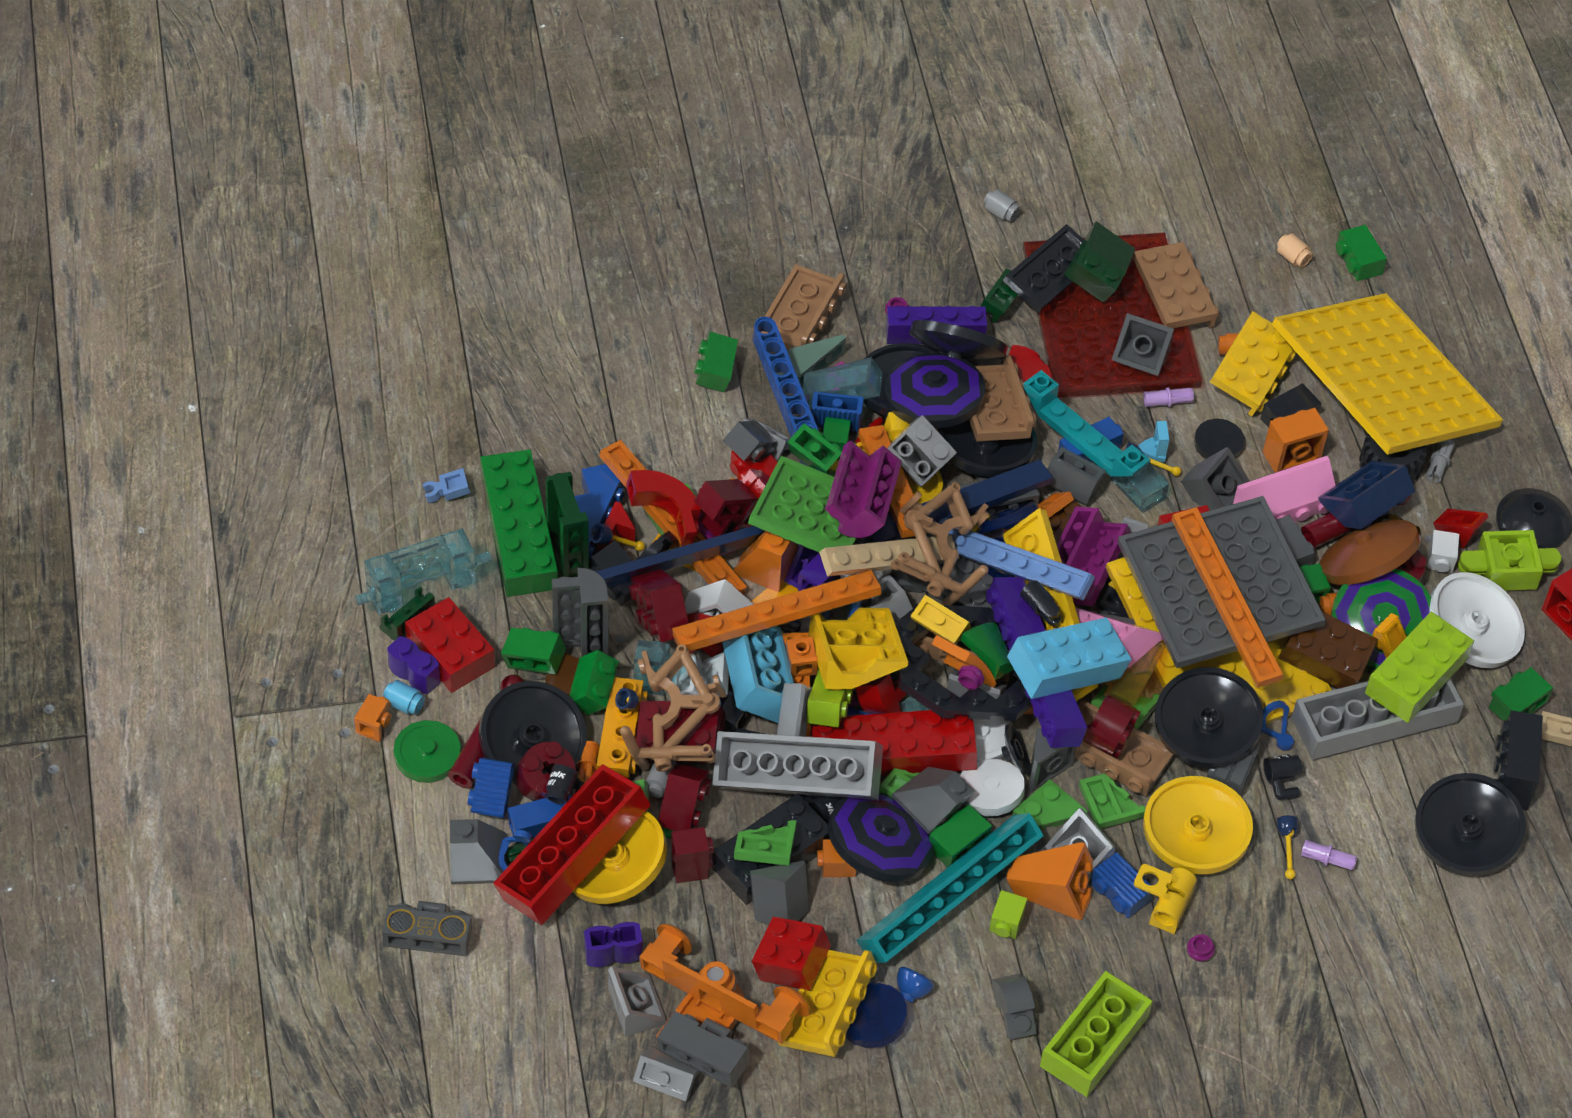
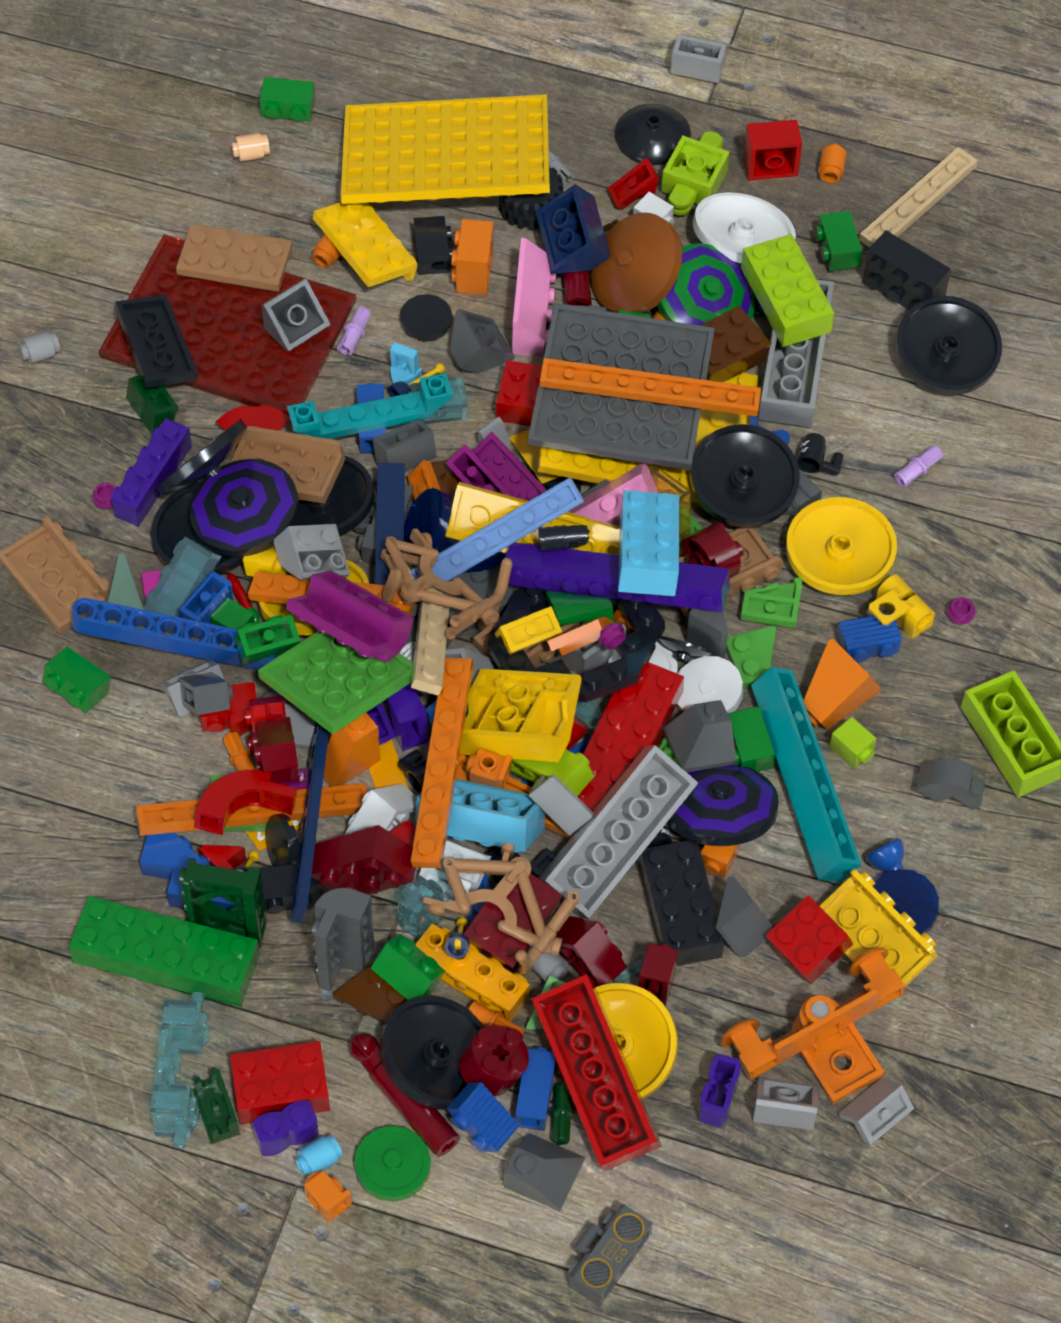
camera: 60 degrees left, 5 degrees up
(450, 486) = (74, 993): medium blue plate -> none
(519, 835) = (558, 1141): blue piece -> none
(533, 650) = (334, 1006): green brick -> none
(561, 784) = (532, 1047): black piece -> none
(704, 1047) = (889, 1059): dark grey piece -> none
(766, 844) = (695, 898): bright green wing -> none
(1083, 829) = (806, 642): light grey slope -> none
(1100, 262) = (179, 298): dark green slope -> none
(1288, 827) = (874, 482): hinge -> none
(1389, 634) = (742, 296): light orange tile -> none

